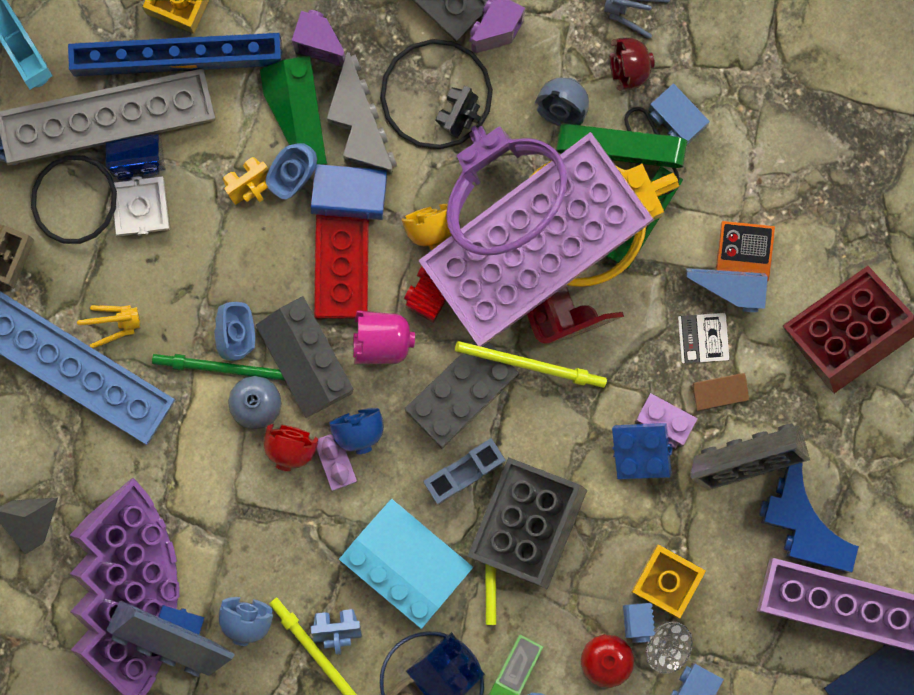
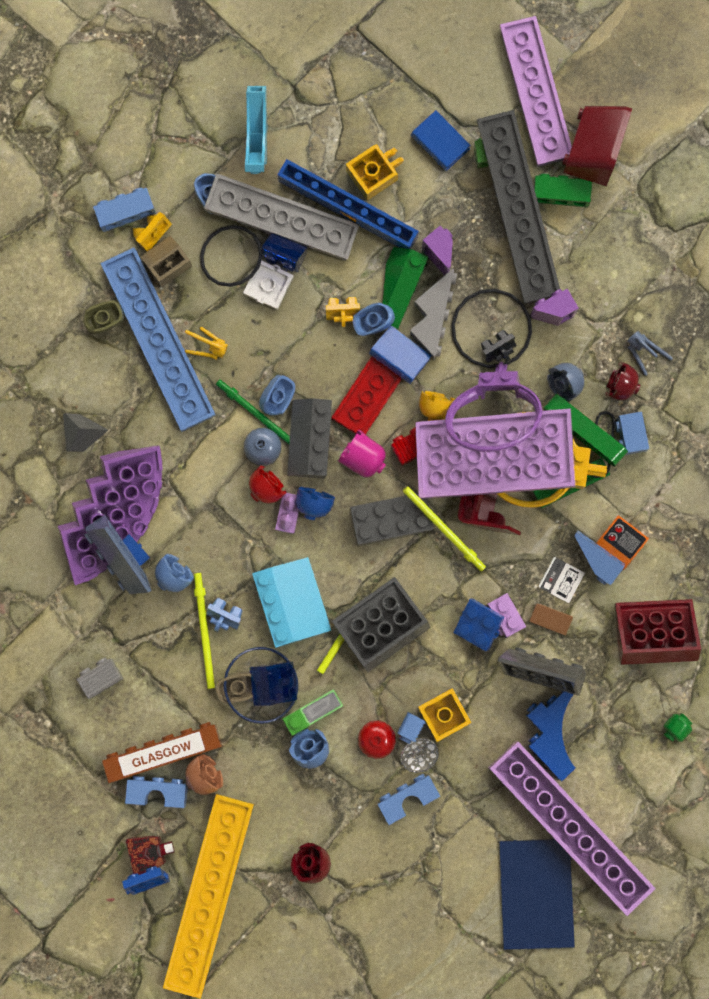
camera: 35 degrees right, 0 degrees up
(464, 471) = (362, 568): sand blue arch -> none

